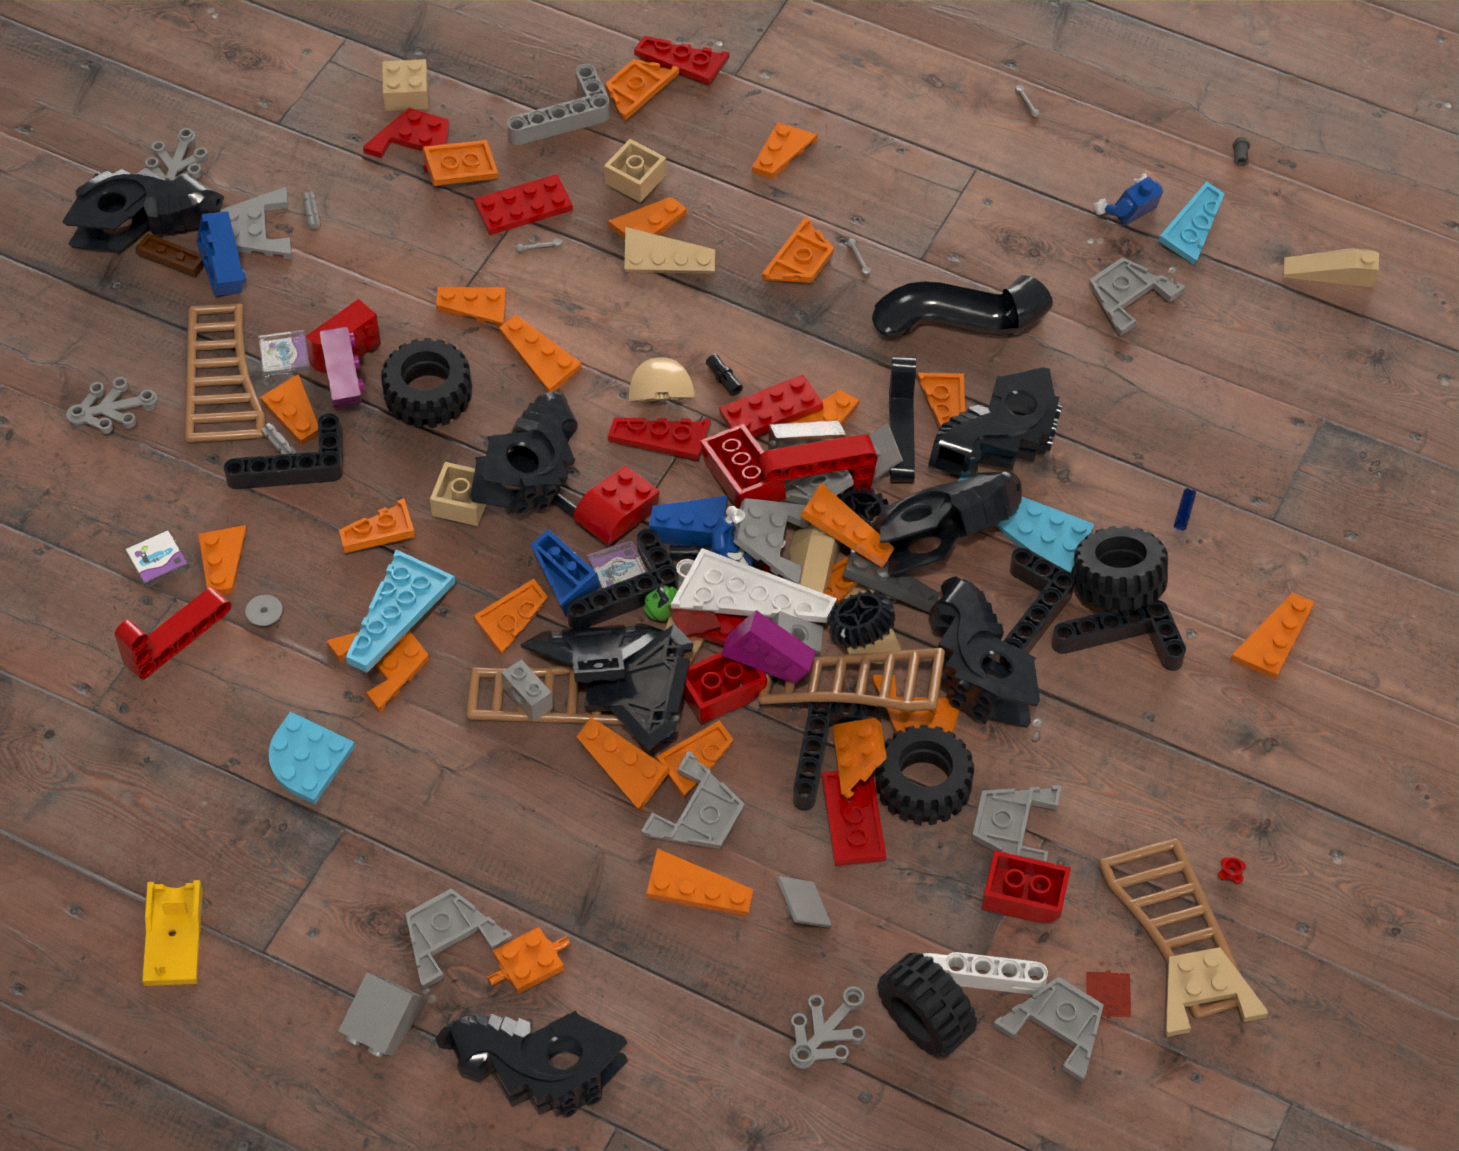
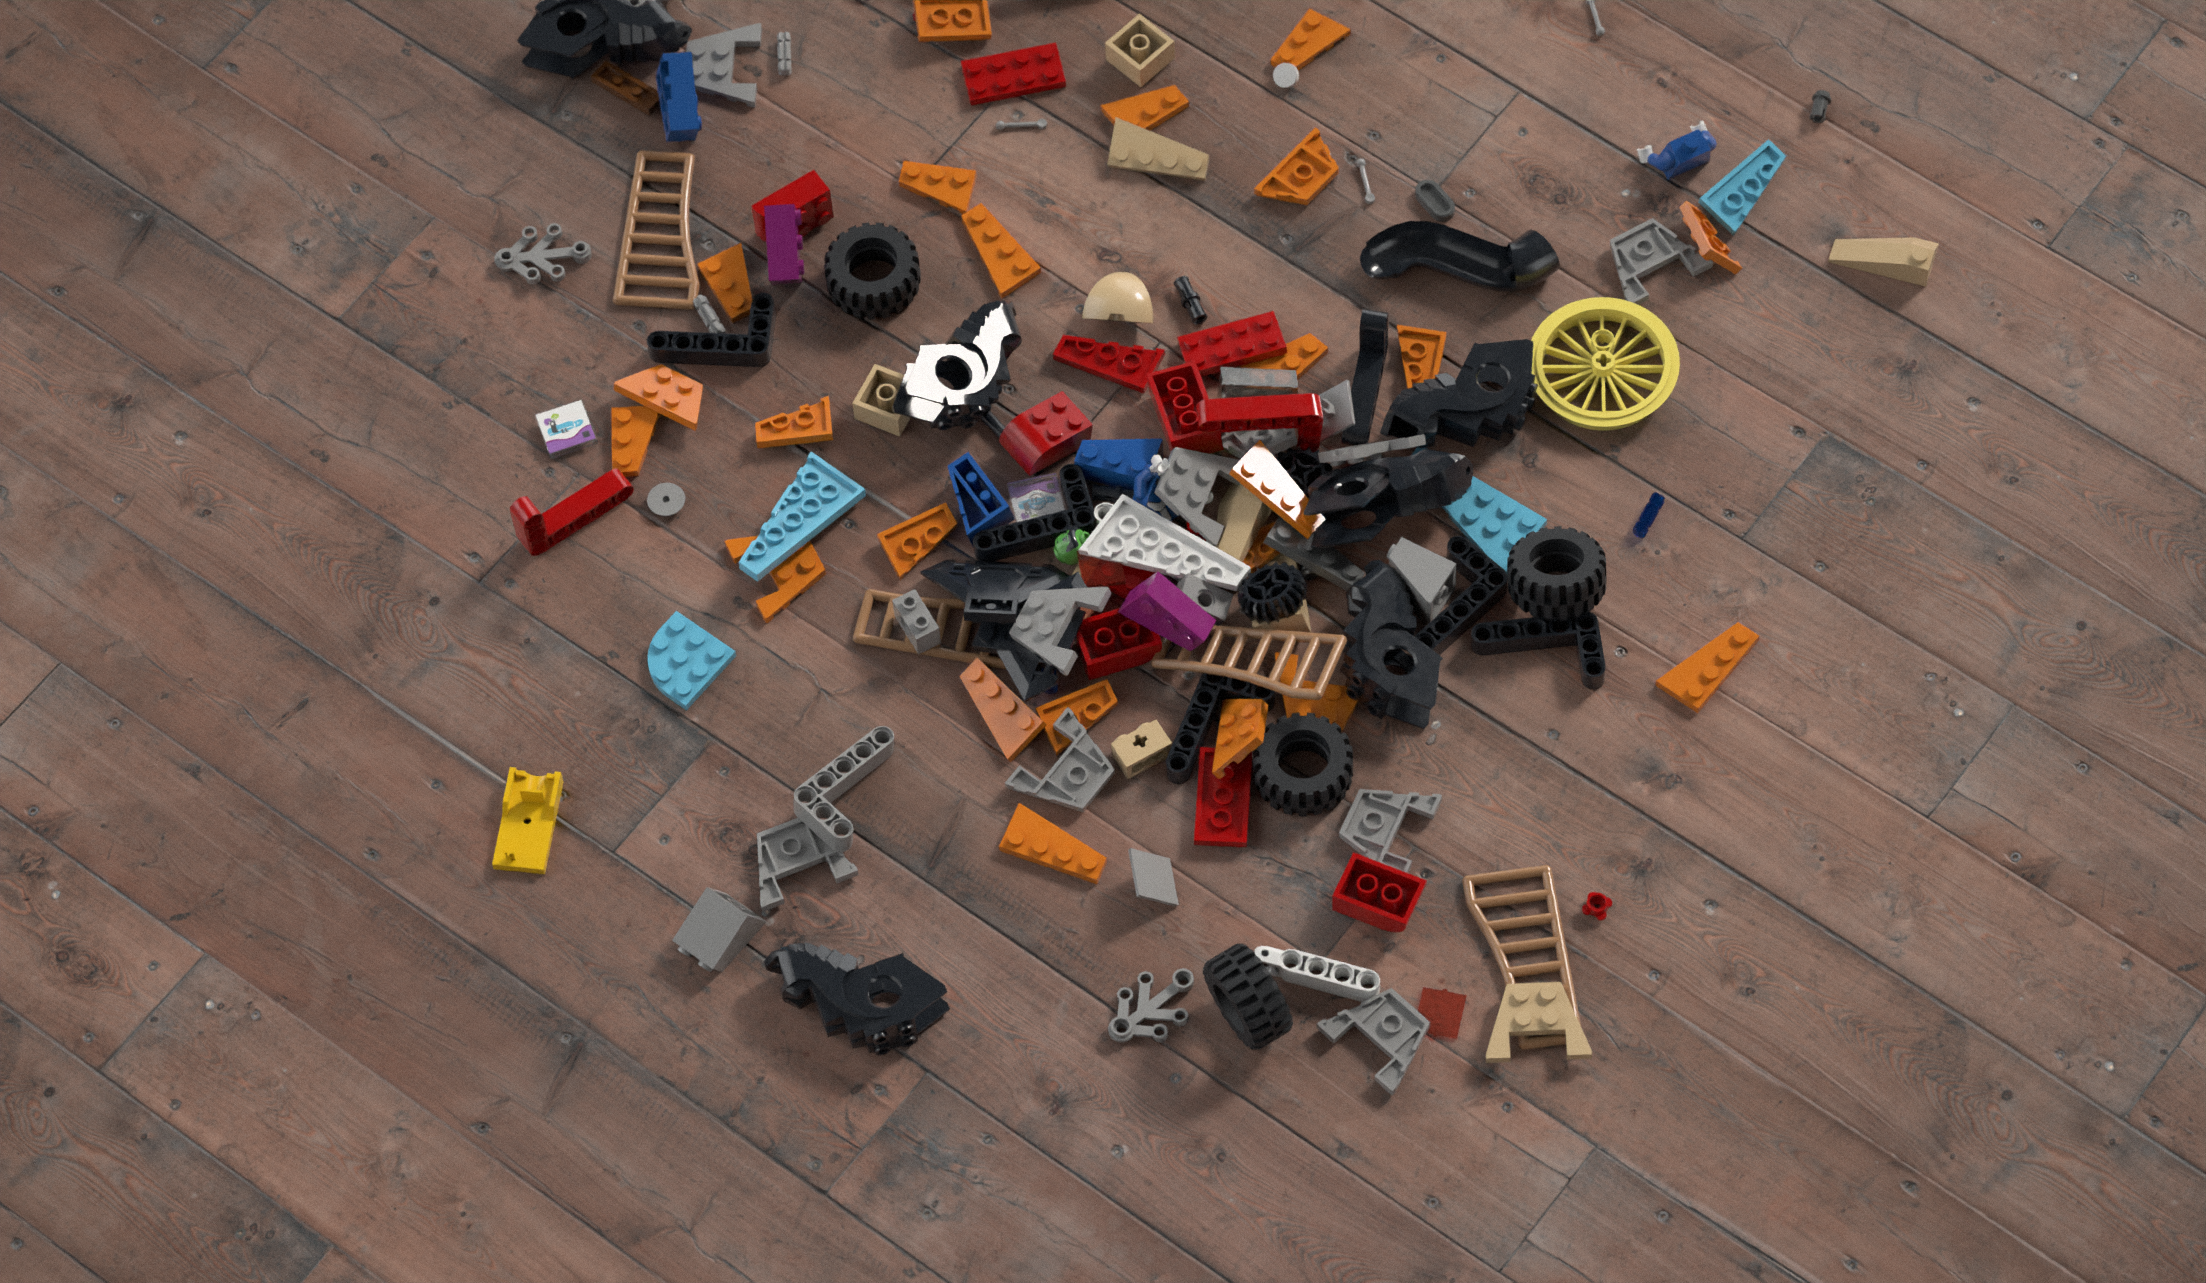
camera: 15 degrees right, 5 degrees up
(247, 514) = (665, 393): none -> orange wing
(283, 353) = (729, 216): clear tile -> none
(476, 853) = (838, 783): none -> light grey beam
(528, 960) = (870, 897): orange plate -> none
(654, 669) = (1048, 616): none -> light grey wing
(765, 781) = (1141, 748): none -> tan brick
(768, 177) = (1285, 75): none -> white tile
(921, 481) = (1370, 450): none -> light grey wing
(924, 266) = (1435, 200): none -> dark grey tile
(1001, 584) = (1426, 576): none -> light grey slope
(1112, 386) = (1615, 368): none -> light yellow piece
(1172, 265) = (1704, 235): none -> orange wing

